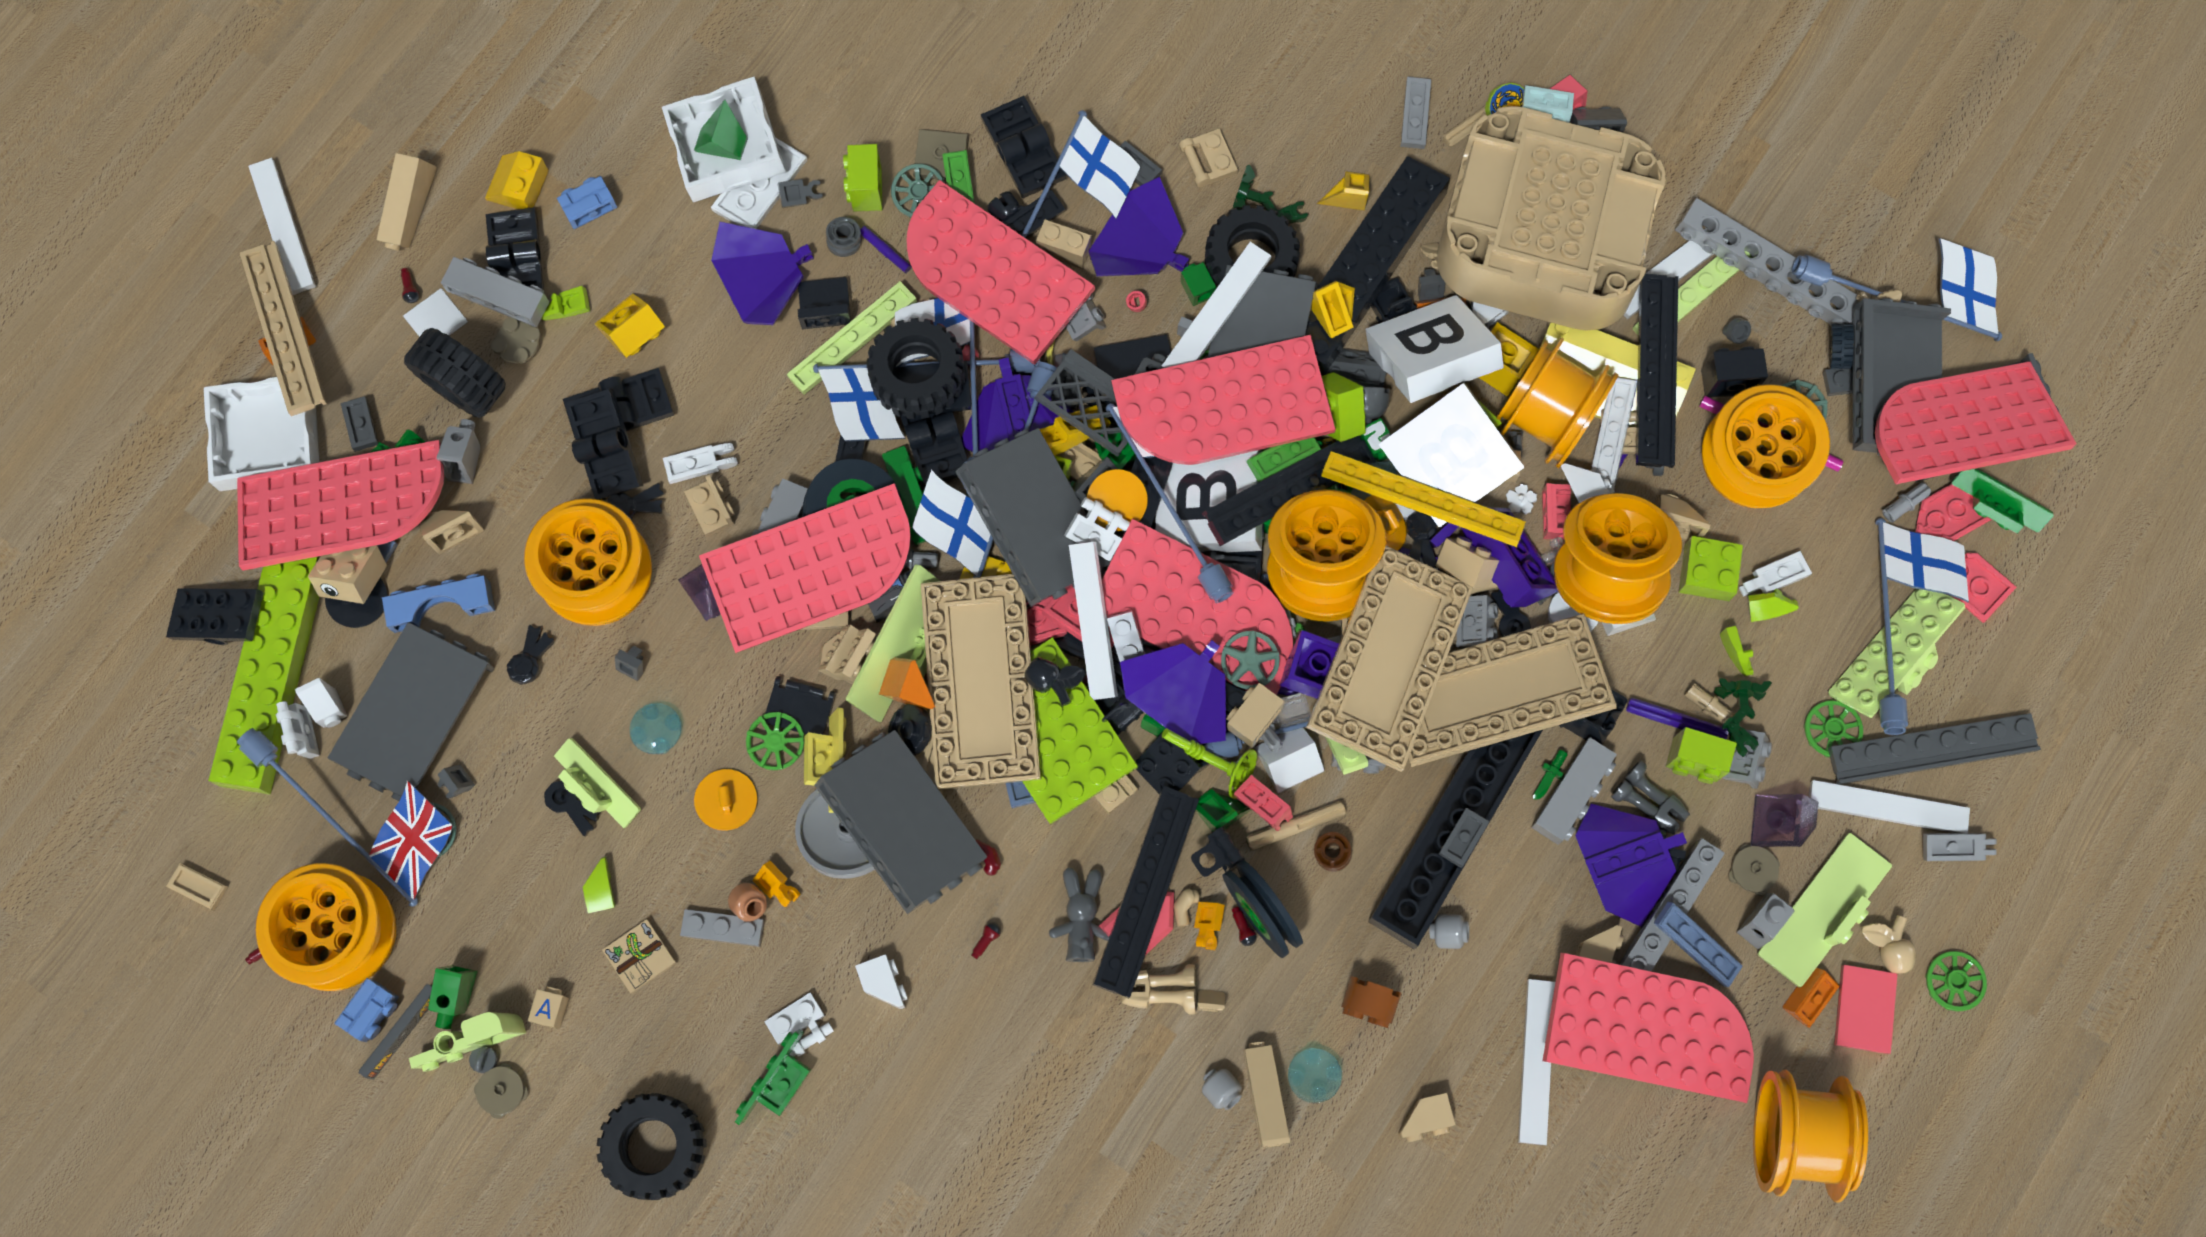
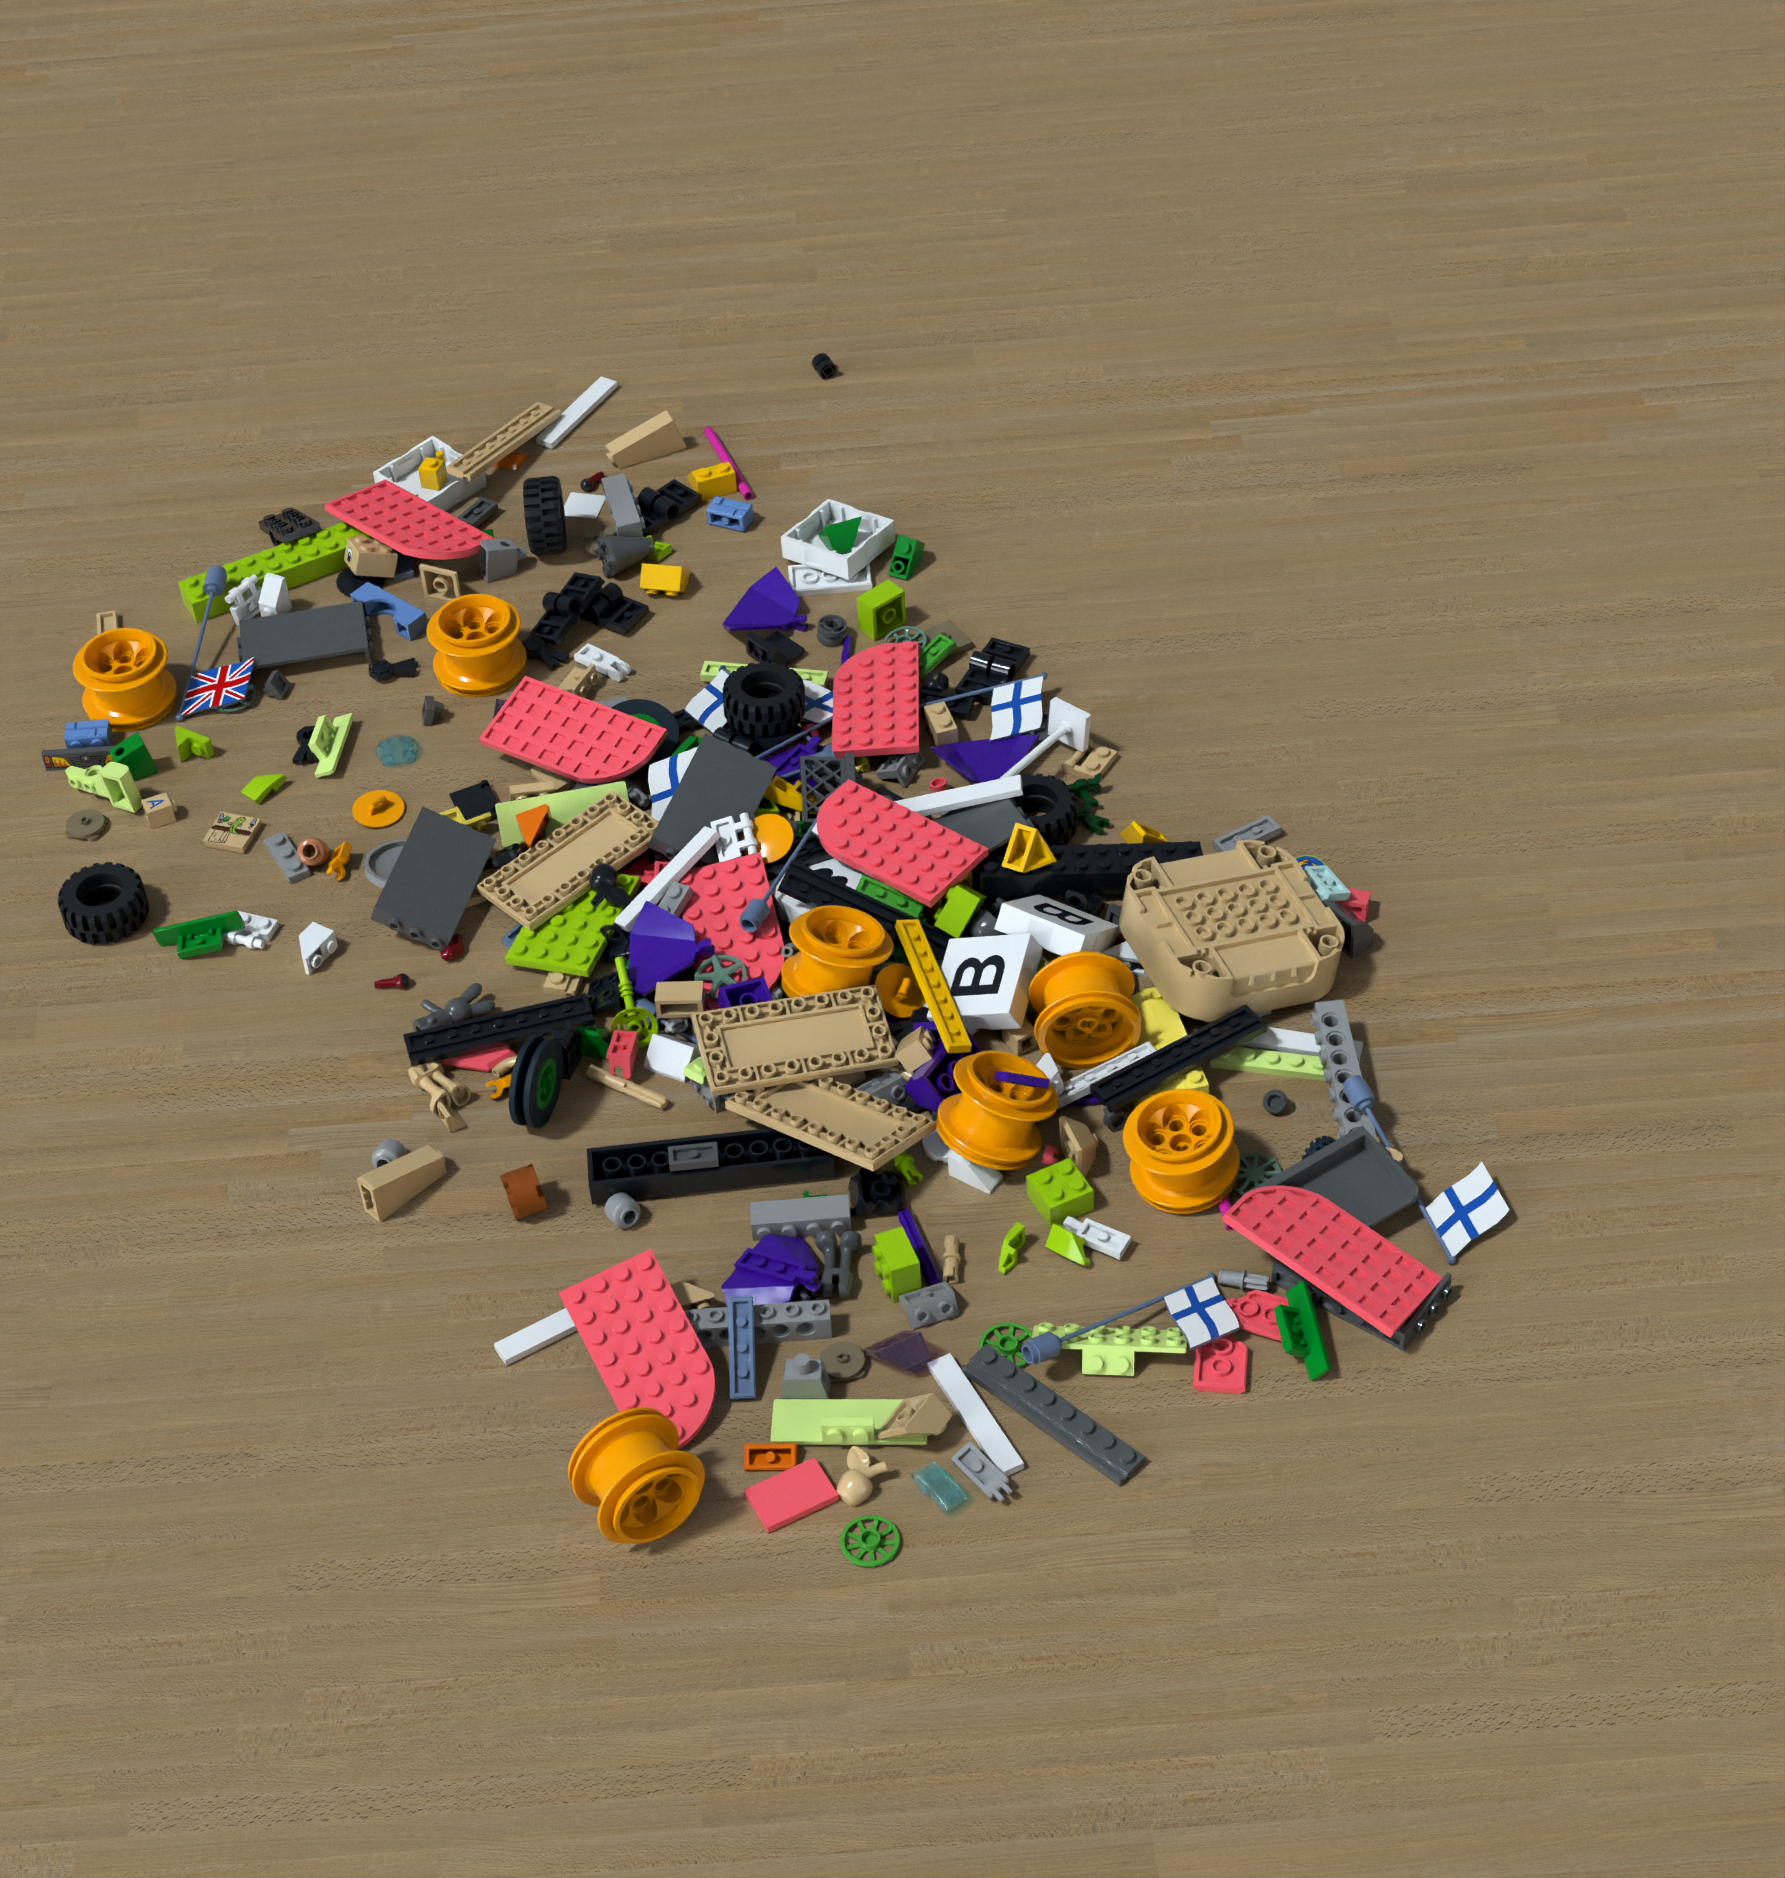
camera: 55 degrees right, 30 degrees down
(258, 422) = (433, 472): none -> yellow brick
(467, 918) = (191, 742): none -> lime slope
(483, 1059) = (100, 803): dark grey tile -> none
(496, 147) = (724, 457): none -> dark pink piece
(560, 338) = (622, 552): none -> dark grey cone
(774, 740) = (441, 804): bright green wheel -> none
(794, 192) = (840, 593): dark grey plate -> none
(799, 102) = (905, 557): none -> green slope
(1178, 146) = (1066, 725): none -> white tile
(1258, 573) = (789, 949): none -> light grey arm
(1314, 1075) = (444, 1202): clear light blue dish -> none
(1333, 839) = (624, 1114): reddish brown wheel -> none
(1426, 1116) = (466, 1278): tan slope -> none
(1636, 521) = (1020, 1079): none -> dark purple tile
(1733, 371) = (1242, 1105): black brick -> none
(1742, 690) = (977, 1265): dark green piece -> none
(1878, 865) = (916, 1418): none -> tan slope
(1948, 890) = (941, 1487): none -> clear light blue slope

